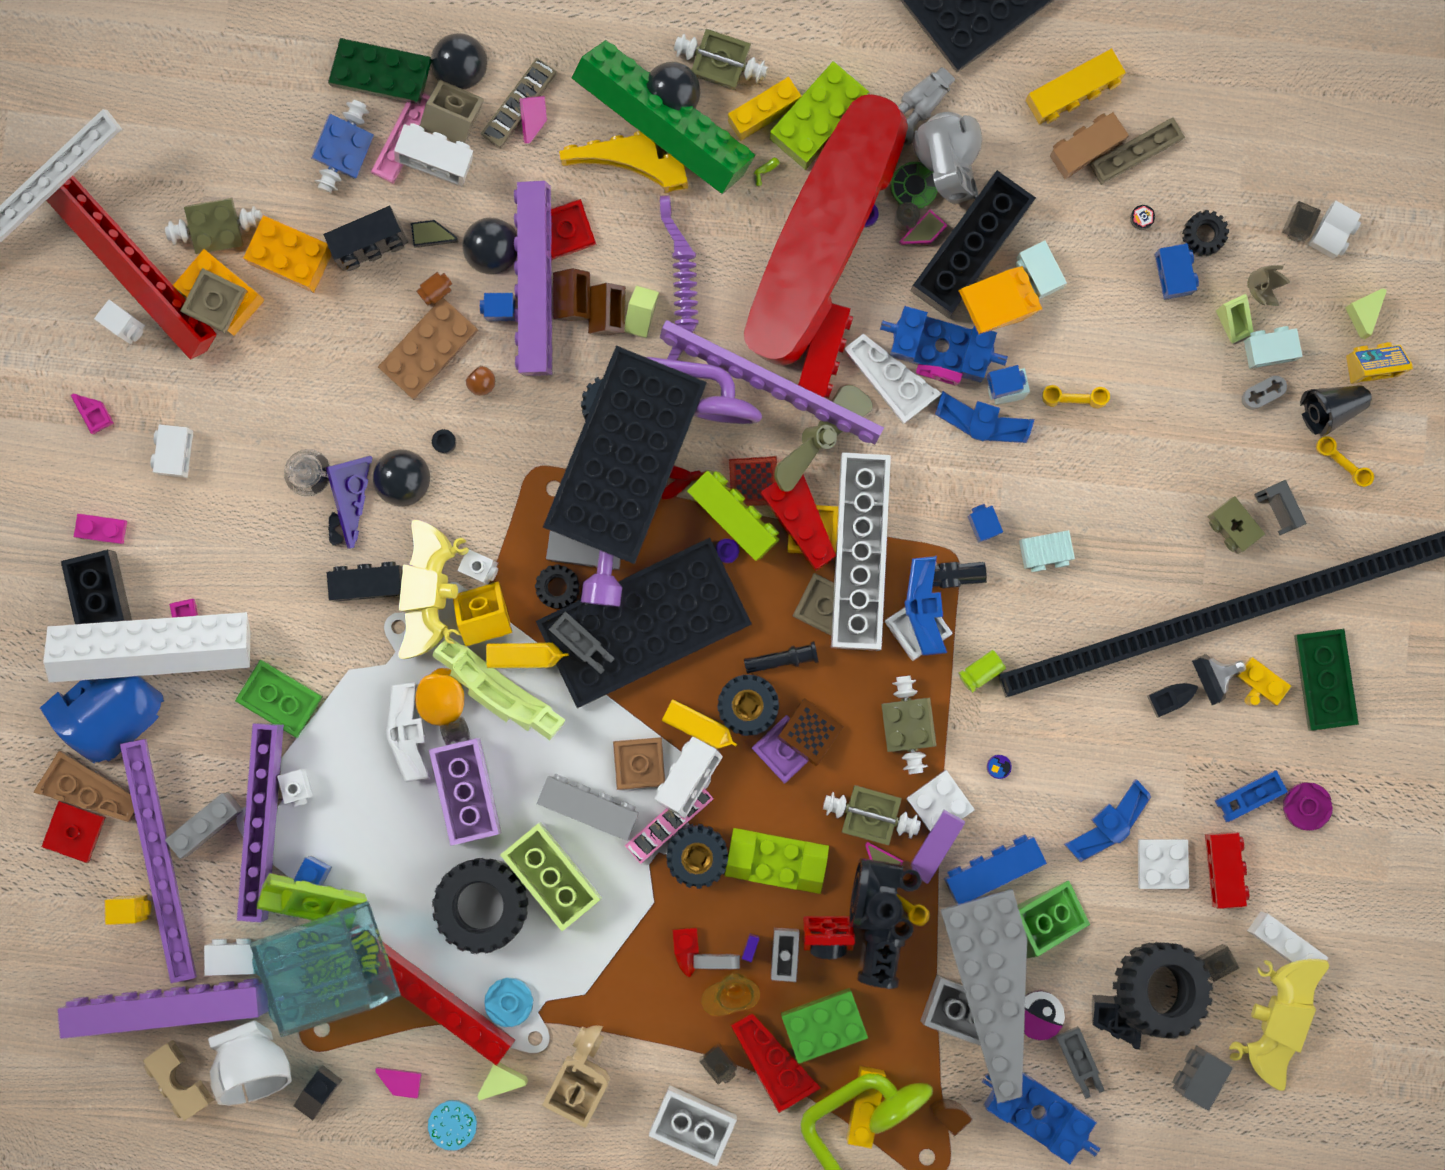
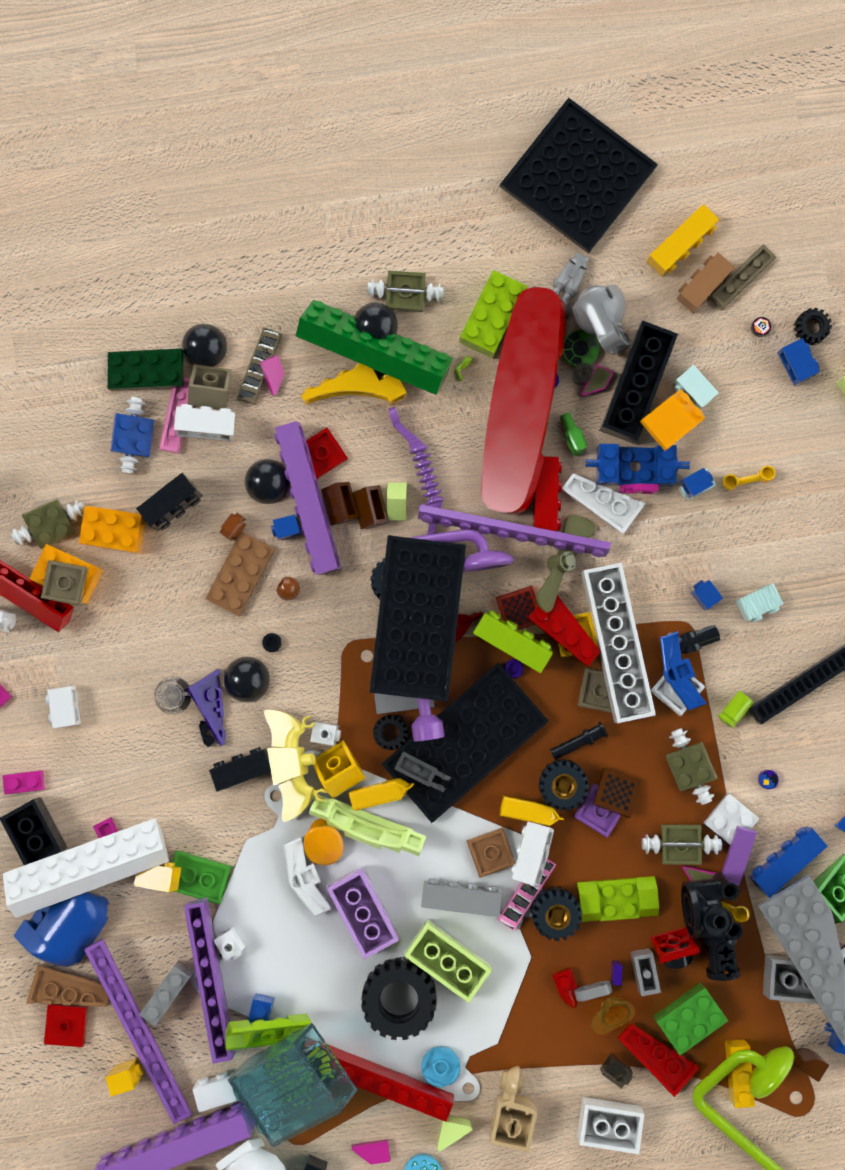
camera: 15 degrees left, 0 degrees up
(233, 684) = (161, 878): none -> brick
(430, 233) = (218, 484): olive tile -> none
(455, 731) = (335, 868): clear smoke bush -> none
(763, 108) = (449, 320): yellow brick -> none
(876, 288) = (573, 435): none -> bright green arm
(983, 421) = (682, 515): blue plate -> none

